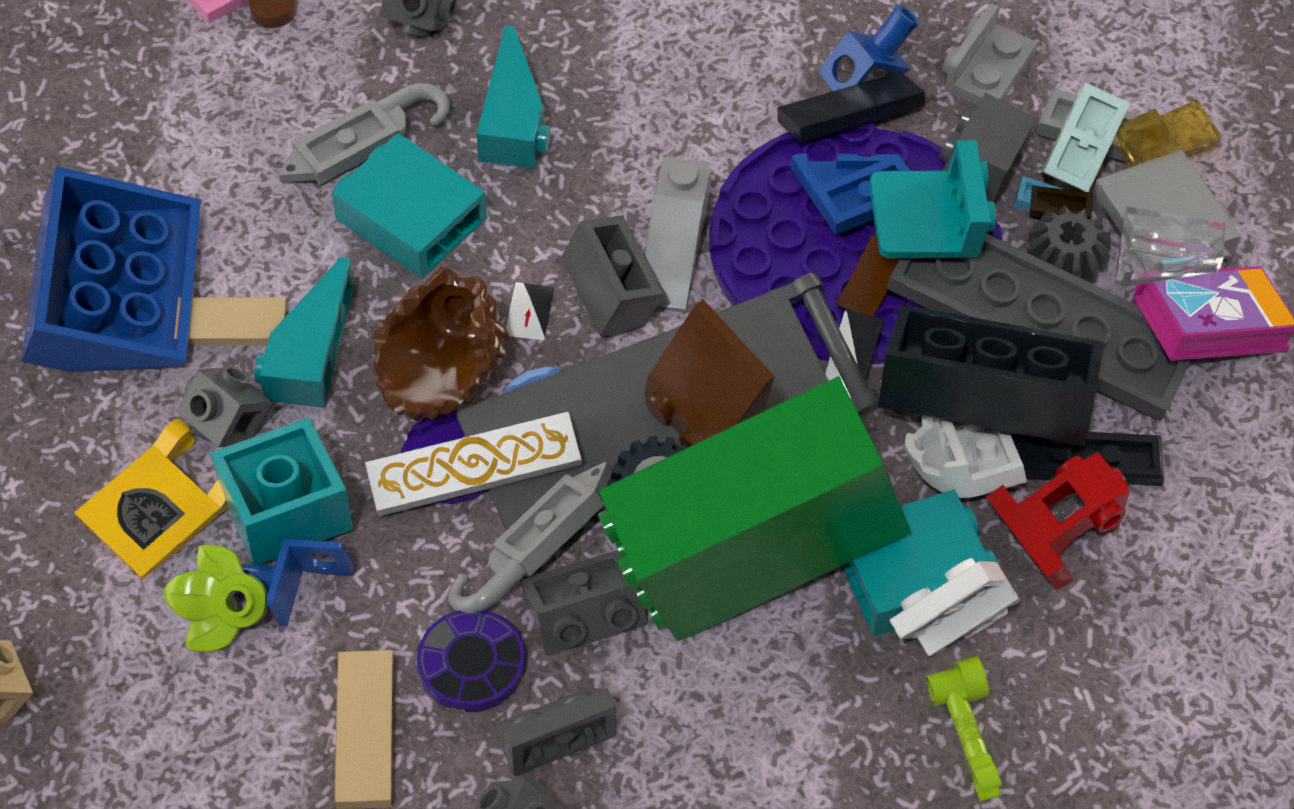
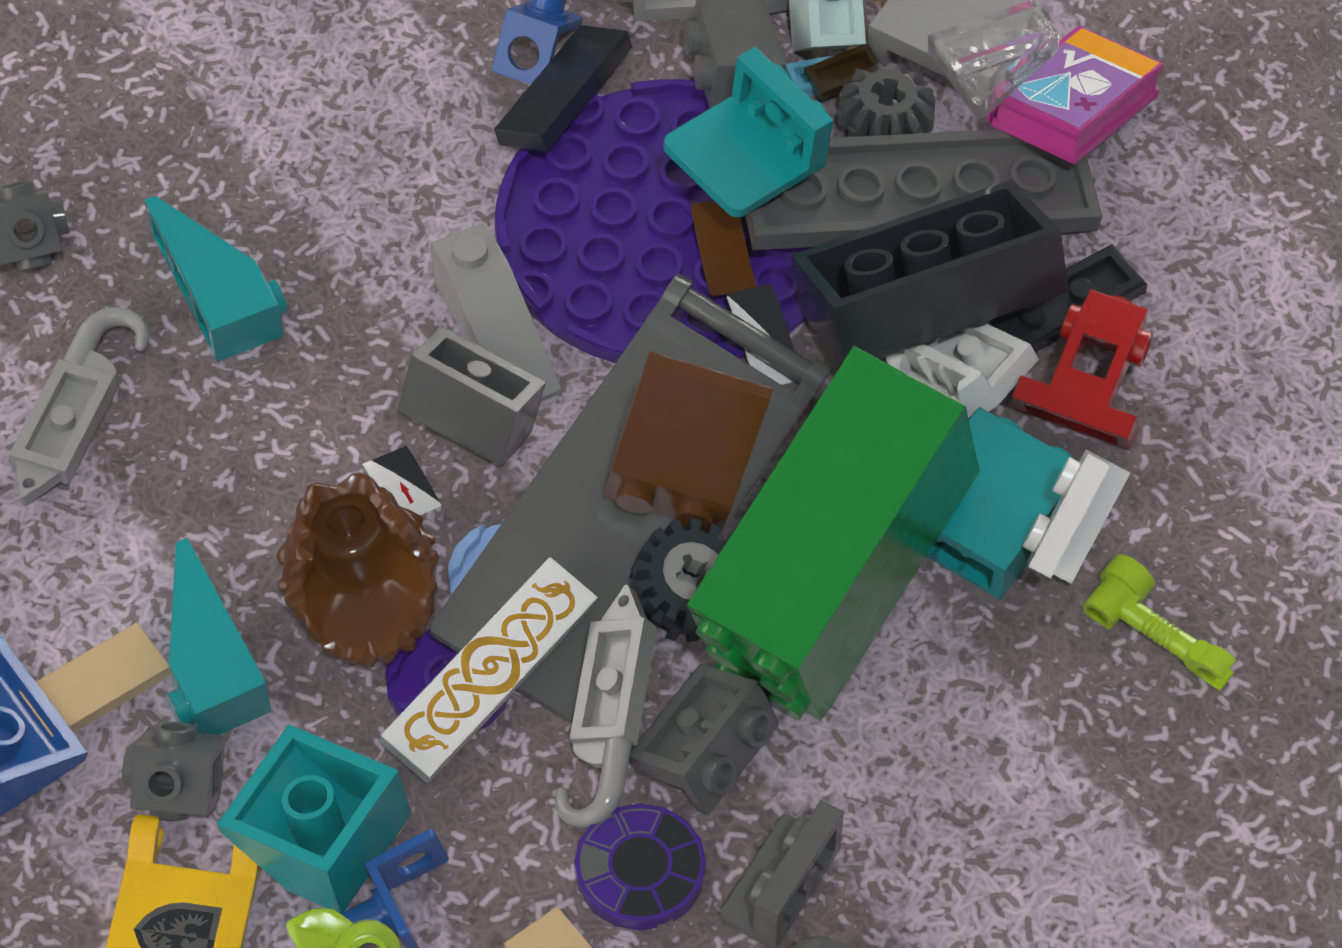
camera: 35 degrees left, 0 degrees up
(409, 205) = (190, 447): teal brick -> none
(842, 186) = (631, 170): blue wing -> none

